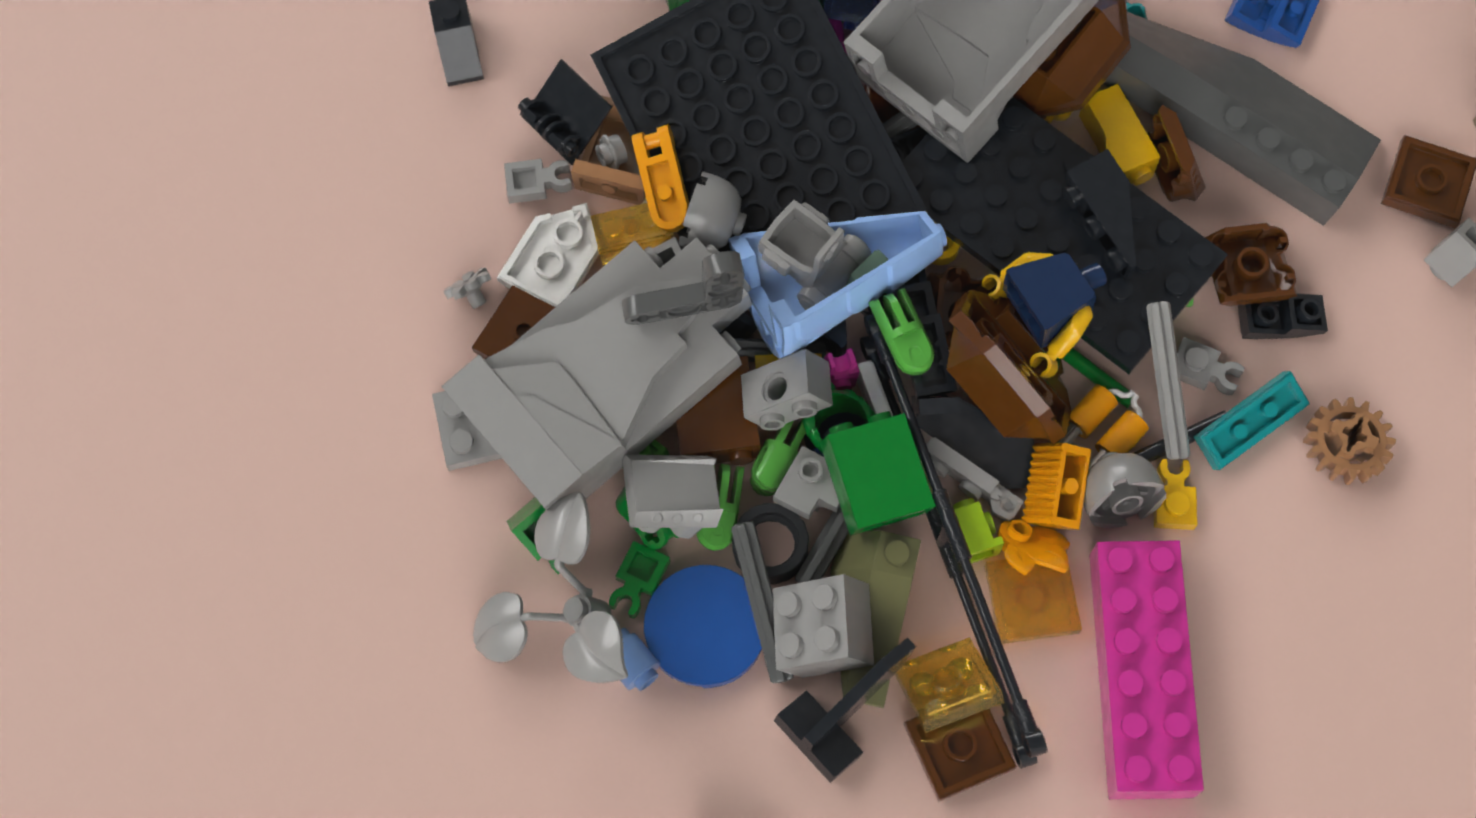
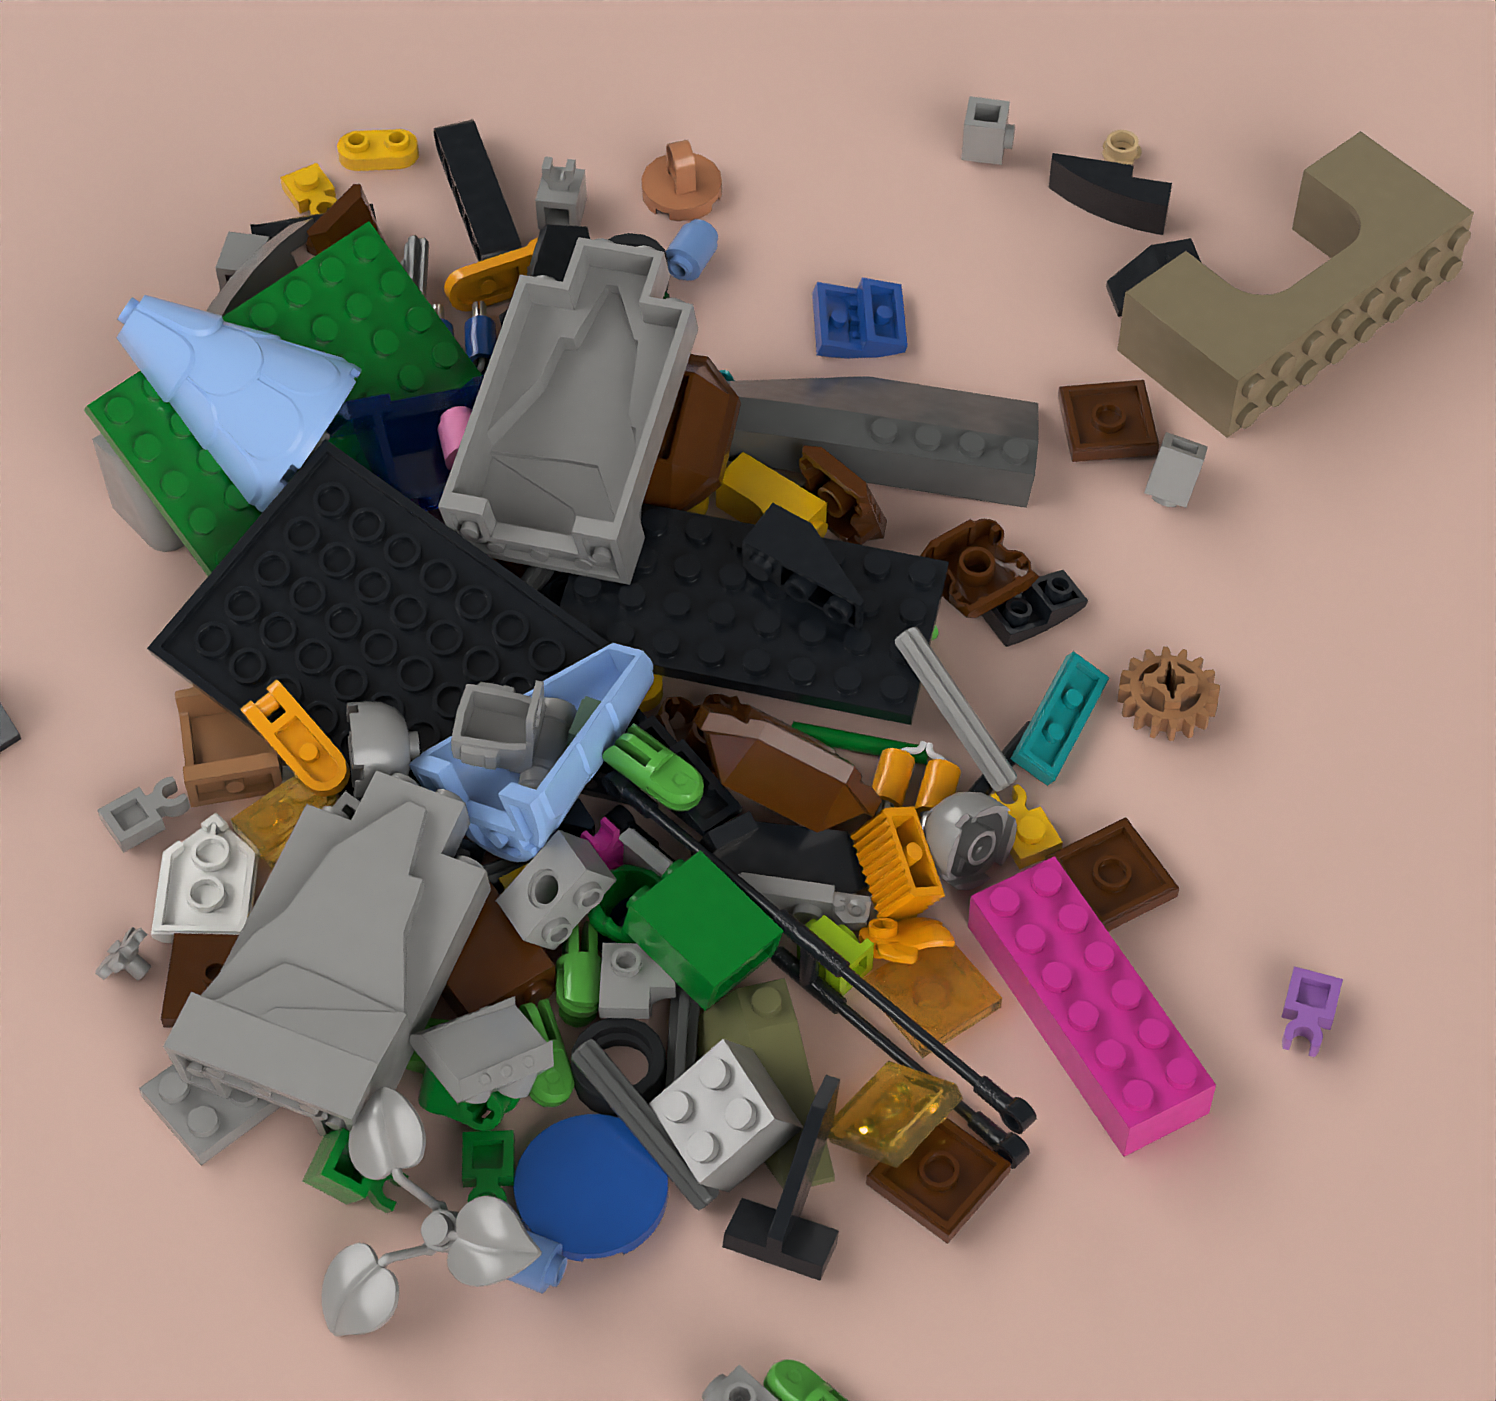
camera: 30 degrees left, 15 degrees down
(566, 111) = (143, 726): black hinge -> none
(611, 151) = (218, 743): light grey plate -> none
(719, 290) = (436, 804): dark grey beam -> none
(1051, 300) = (790, 674): dark blue torso -> none
(1200, 365) = (986, 691): light grey plate -> none
(1222, 571) = (1117, 873): none -> reddish brown plate
(1320, 753) = (1310, 1006): none -> medium lavender plate

